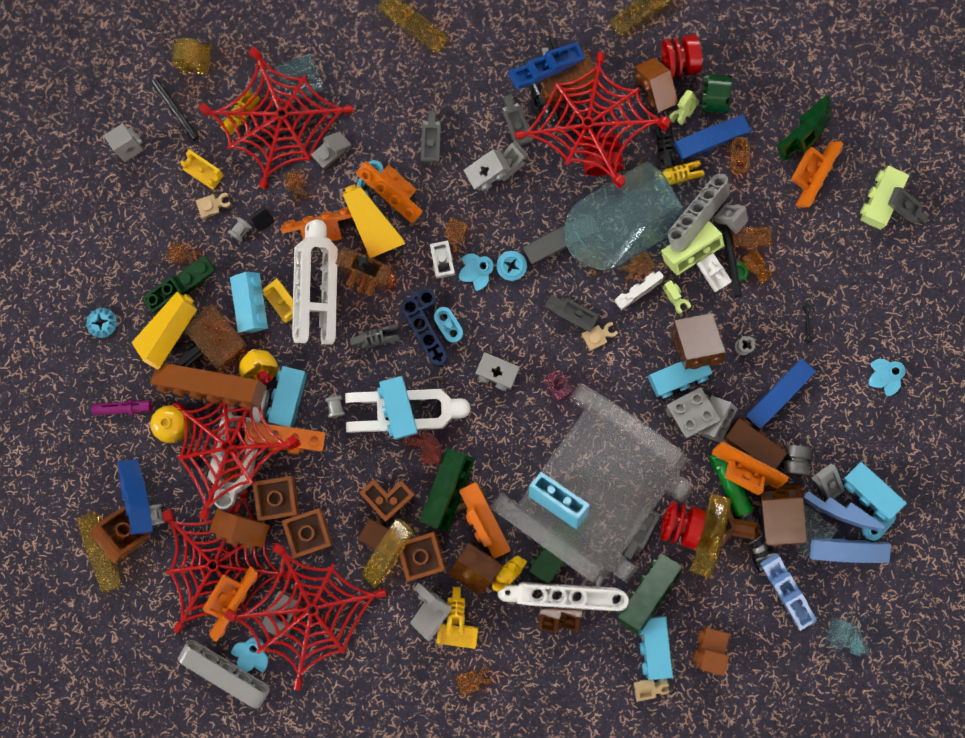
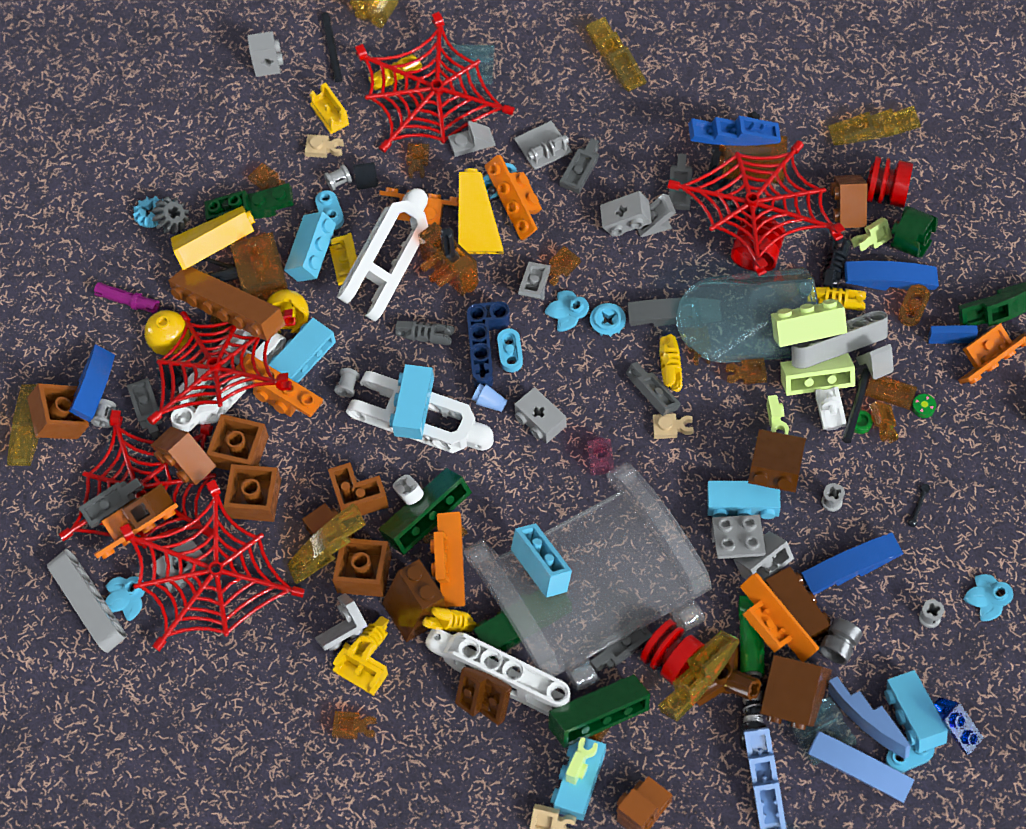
camera: 25 degrees right, 20 degrees down
(119, 329) = (176, 211): none -> dark grey gear
(184, 492) = (144, 405): none -> dark grey hinge
(201, 590) = (110, 501): none -> dark grey hinge
(235, 587) = (147, 506): none -> reddish brown slope
(246, 259) = (330, 207): none -> medium azure plate
(391, 130) = (543, 145): none -> light grey hinge
(428, 475) = (408, 489): none -> white beam
(430, 446) = (426, 460): clear red brick -> none
(451, 373) = (489, 398): none -> light blue cone
(576, 283) = (670, 362): none -> yellow hinge
(638, 291) = (738, 396): white hinge -> none
(656, 647) = (577, 766): none -> yellowish green plate
(676, 214) = (808, 322): none -> yellowish green brick
(779, 169) = (952, 334): none -> blue tile
(780, 238) = (924, 406): none -> green tile
(829, 481) = (868, 679): light grey slope -> none
(858, 411) = (927, 618): none -> light grey bush
(911, 493) = (959, 724): none -> clear blue bracket

